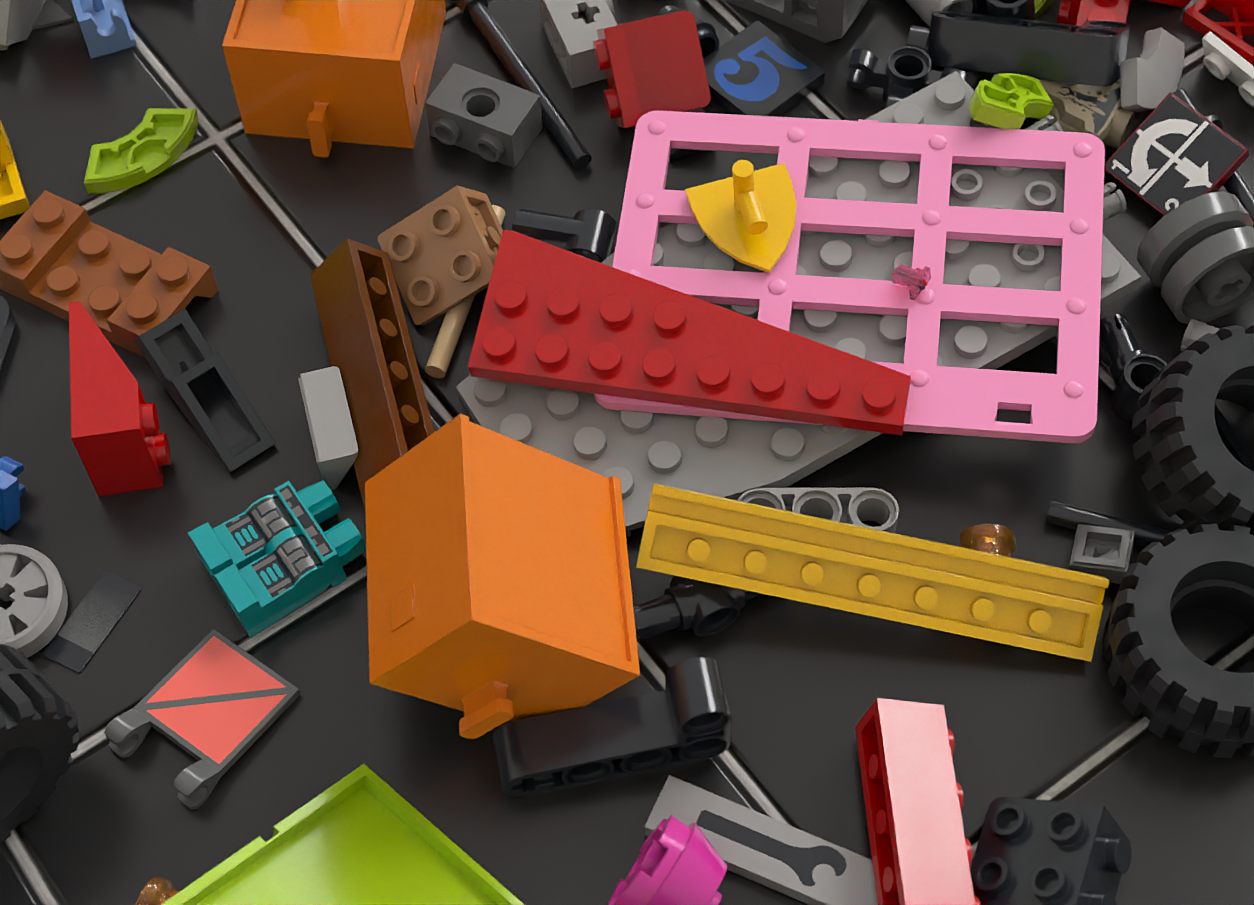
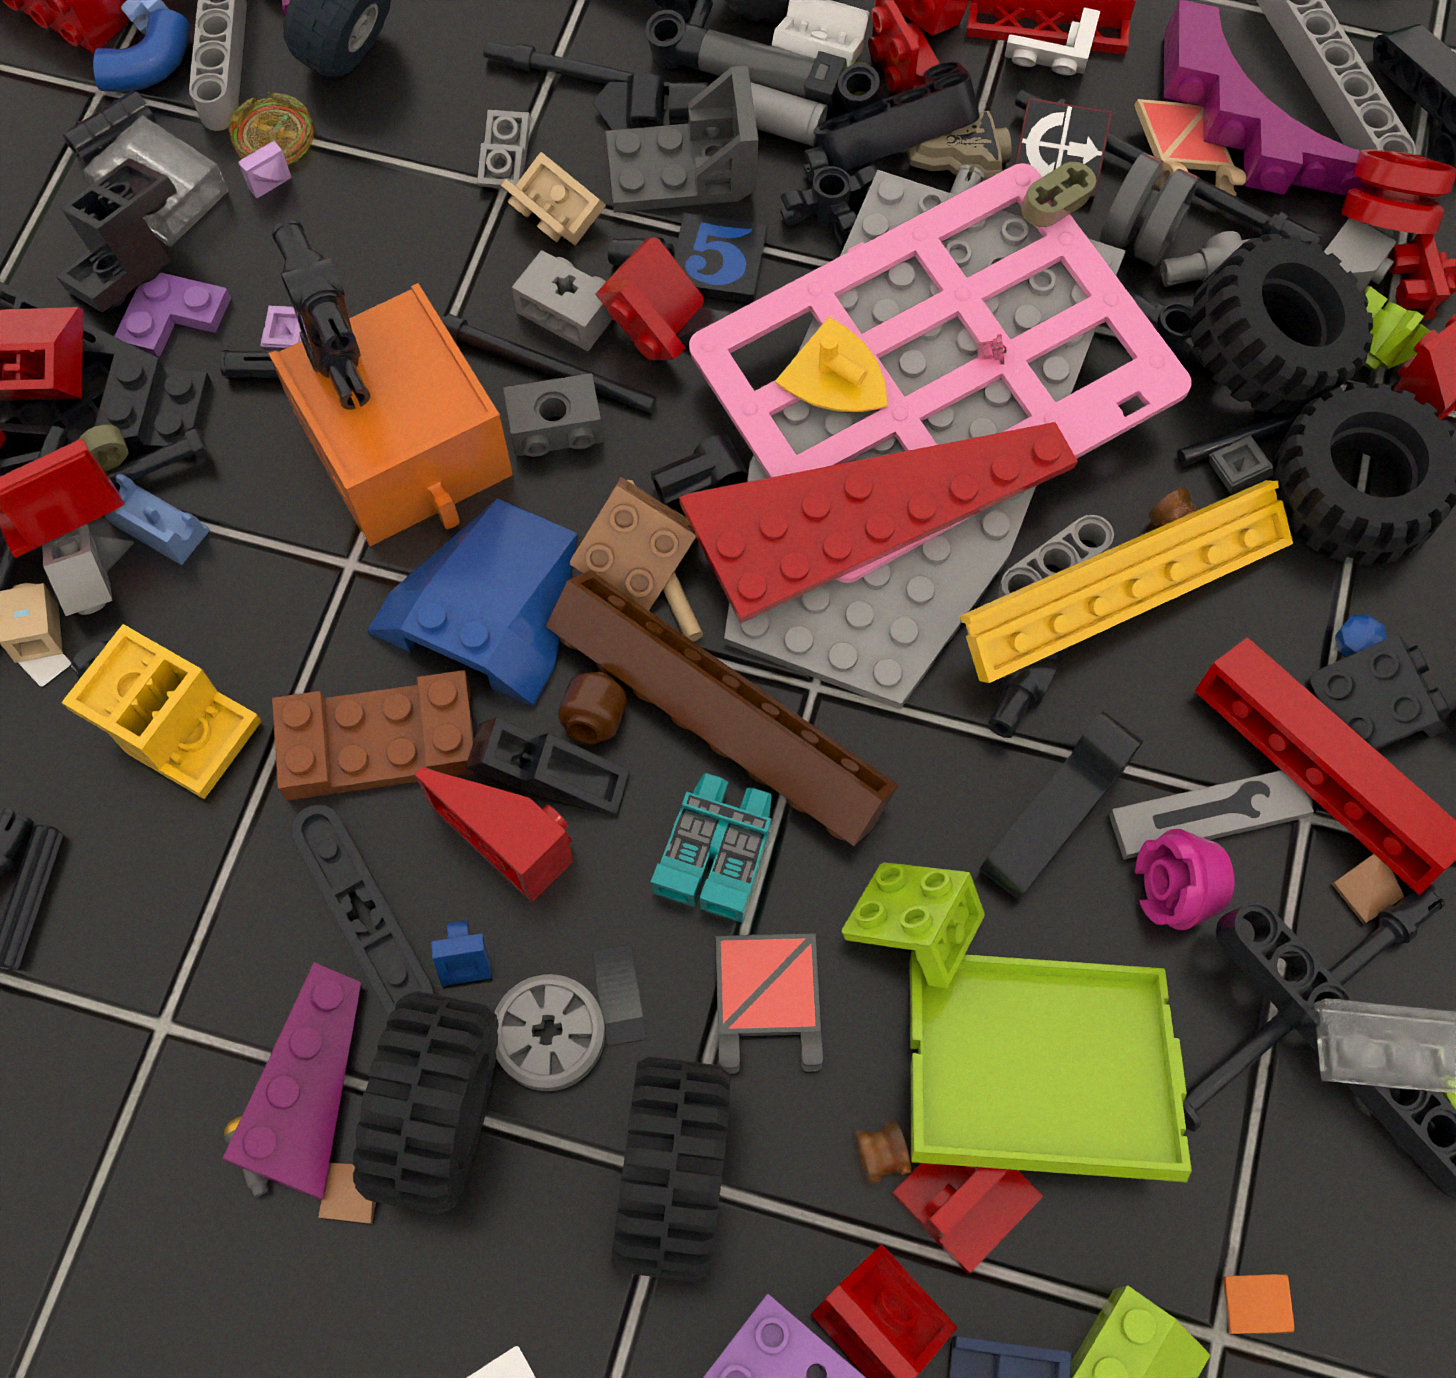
camera: 40 degrees left, 10 degrees up
(143, 152) = (306, 614): lime tile -> none
(280, 360) = (592, 707): none -> reddish brown head
(282, 224) = (488, 599): none -> blue wedge
(329, 423) = (666, 729): light grey slope -> none
(390, 742) = (921, 912): none -> lime bracket
(497, 579) = (926, 759): orange piece -> none
(1009, 100) = (935, 171): lime tile -> none
(1084, 787) = (1359, 633): none -> blue tile
(1101, 178) = (1053, 188): none -> beam
(1154, 74) = (992, 89): light grey tile -> none

